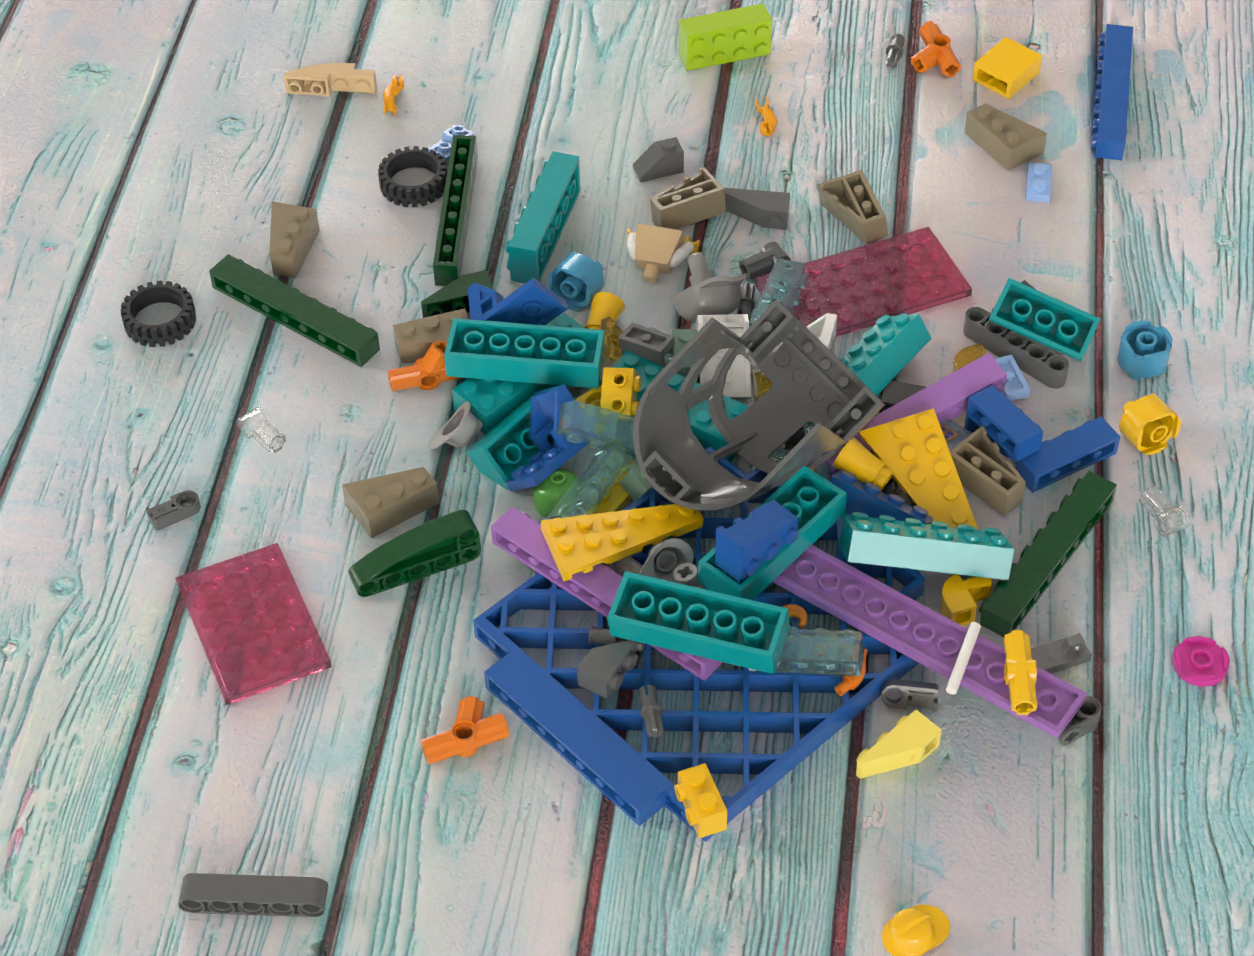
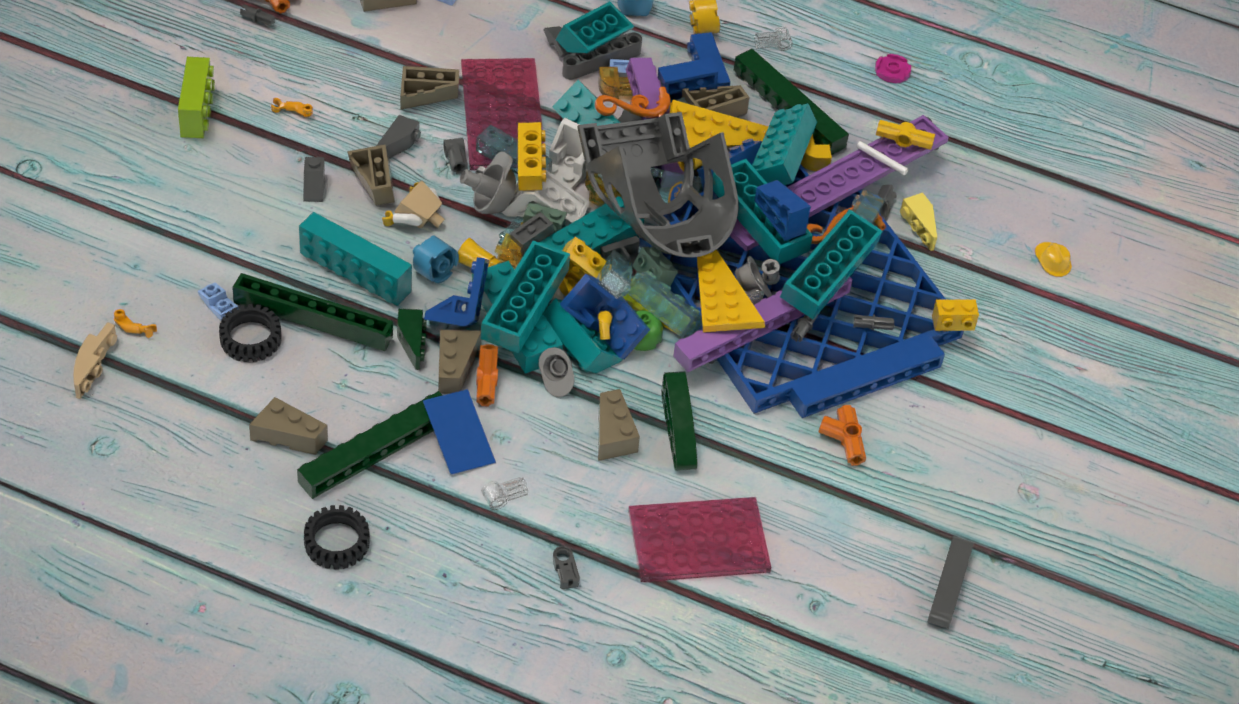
camera: 80 degrees left, 0 degrees up
(331, 368) = (459, 431): none -> blue sticker
(535, 444) = (604, 324): none -> yellow arm
(605, 667) = (831, 335): dark grey slope -> none
(751, 298) = (530, 156): none -> yellow brick
(910, 375) = (634, 106): none -> orange plant
(1061, 654) = (868, 125): flat silver hinge -> none

